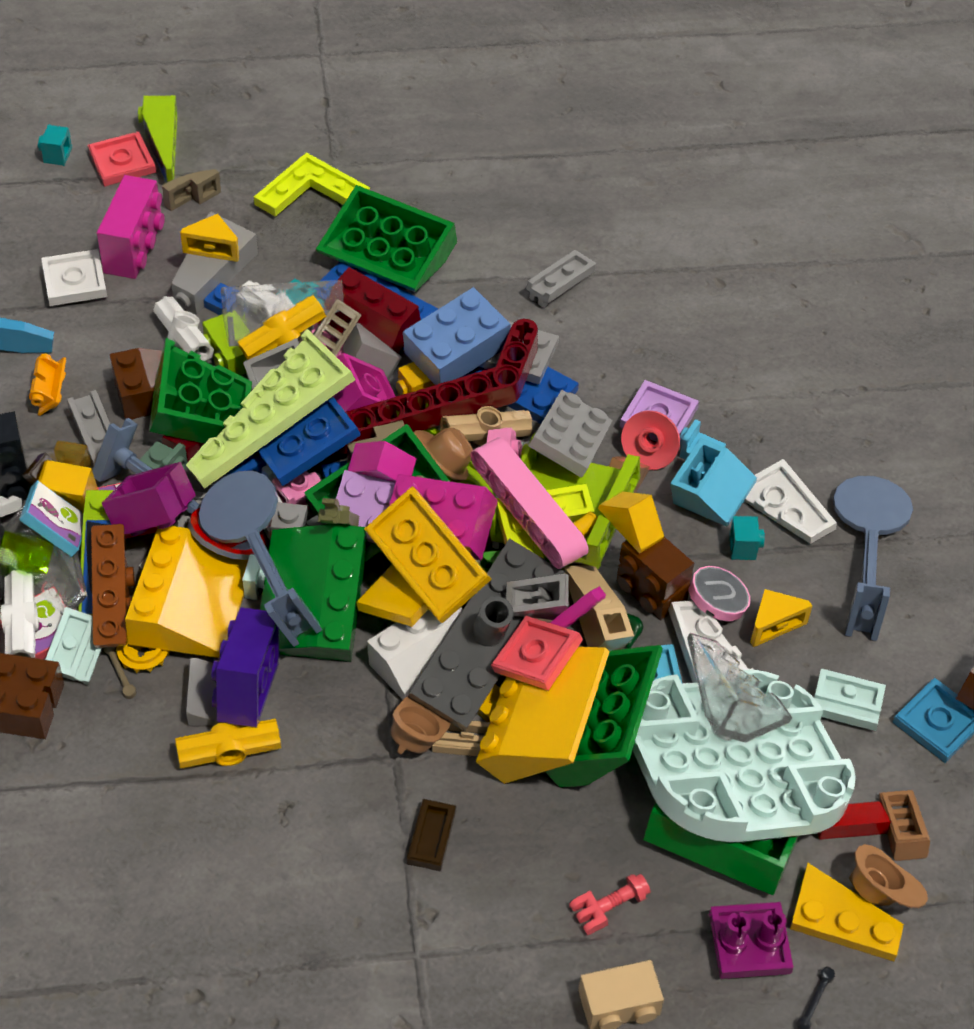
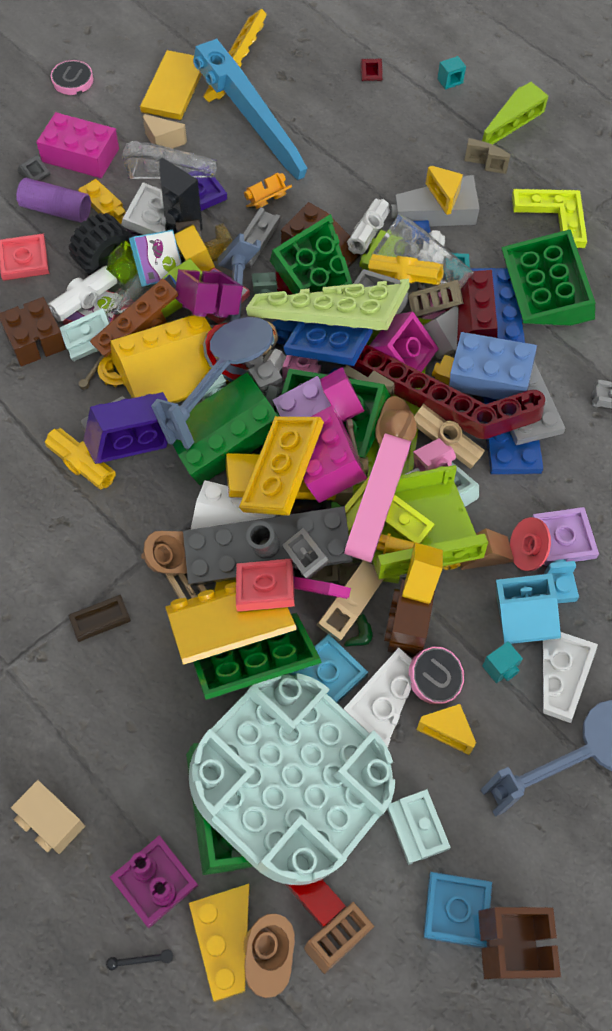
camera: 55 degrees right, 10 degrees up
(74, 277) = (360, 150): white plate -> none
(121, 157) = (476, 109): coral tile -> none
(130, 227) = (419, 145): dark pink brick -> none
(336, 514) = (273, 395): olive plate -> none
(571, 433) = (481, 488): light grey plate -> none
(636, 887) = (143, 774): coral hinge -> none
(731, 695) = (337, 740): clear wedge -> none

